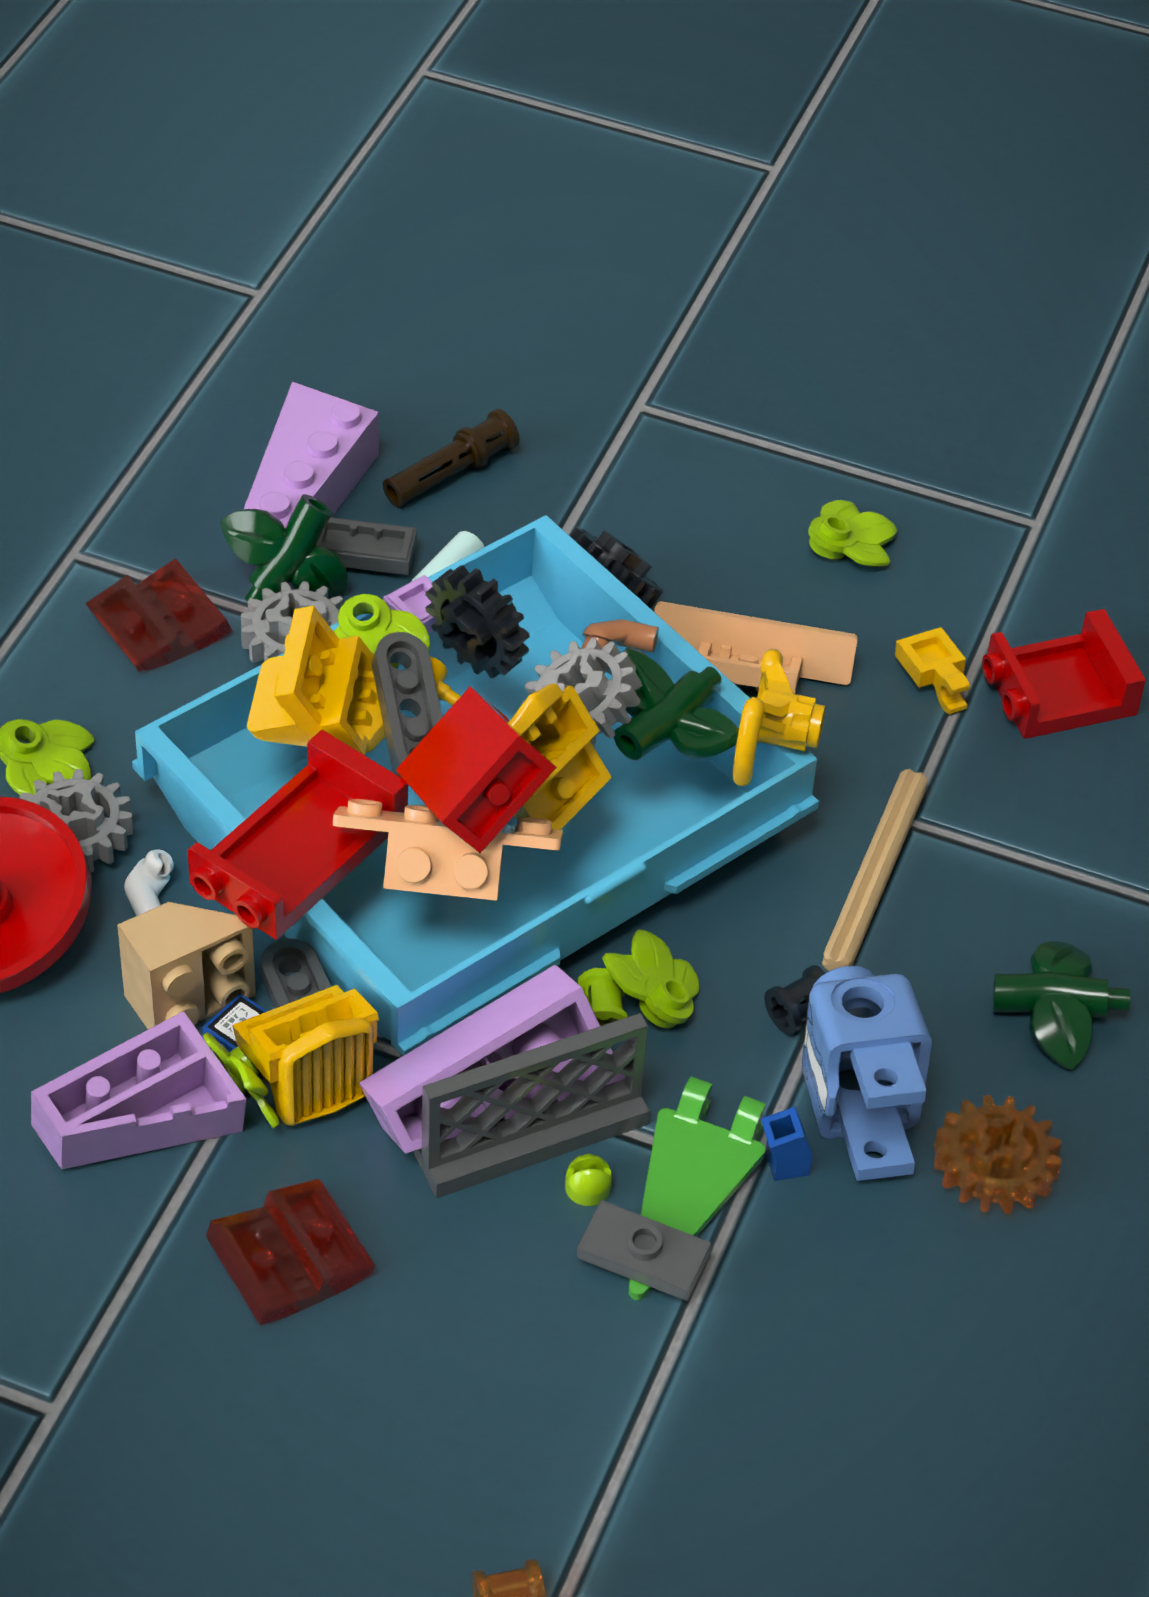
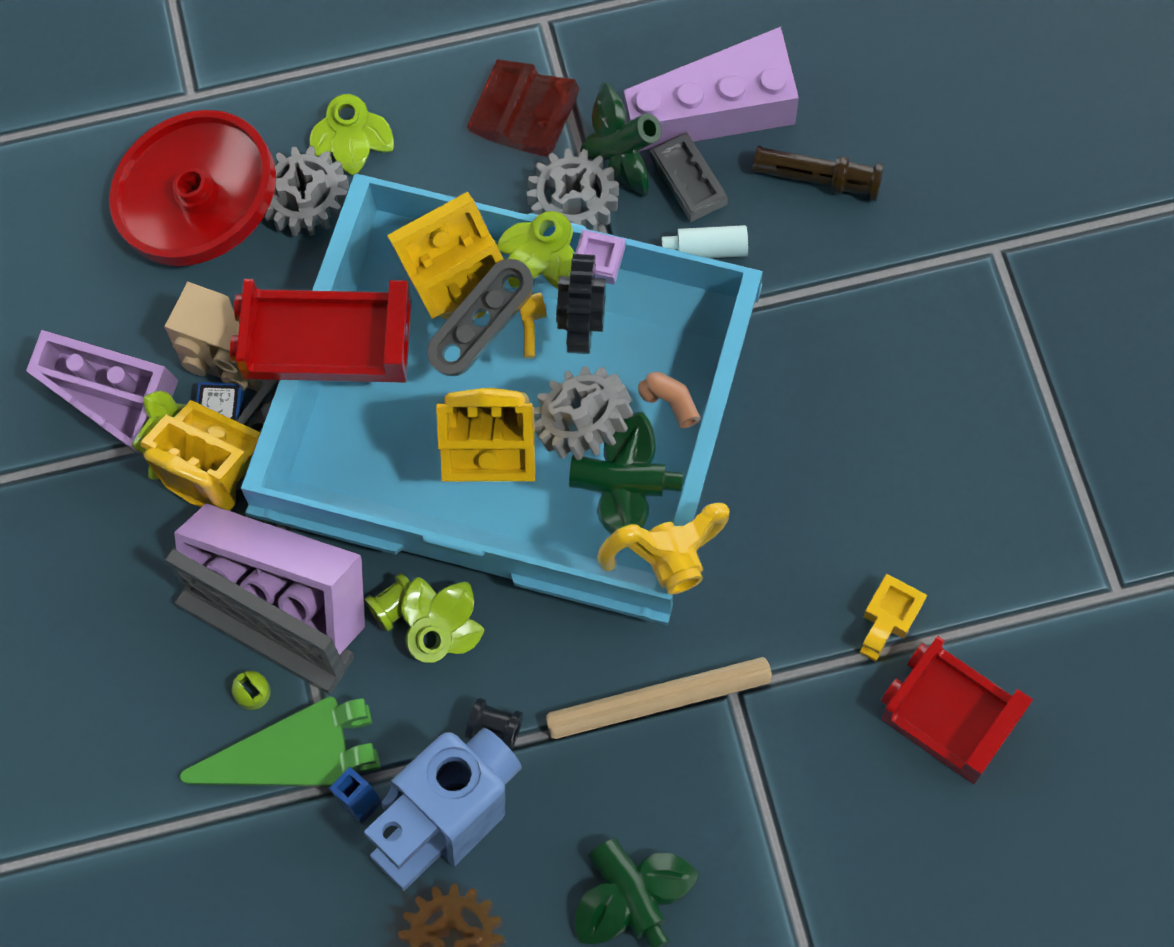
camera: 60 degrees right, 20 degrees up
(148, 881) = (290, 267): white arm -> none
(290, 1251) = (69, 553): clear red slope -> none
(432, 858) = (378, 424): light nougat bracket -> none
(475, 770) = (404, 401): red panel -> none
(620, 562) = (782, 344): black gear -> none
(644, 1250) = (208, 762): dark grey plate -> none
(739, 641) = (791, 485): light nougat bracket -> none
(846, 531) = (989, 476): lime plate -> none

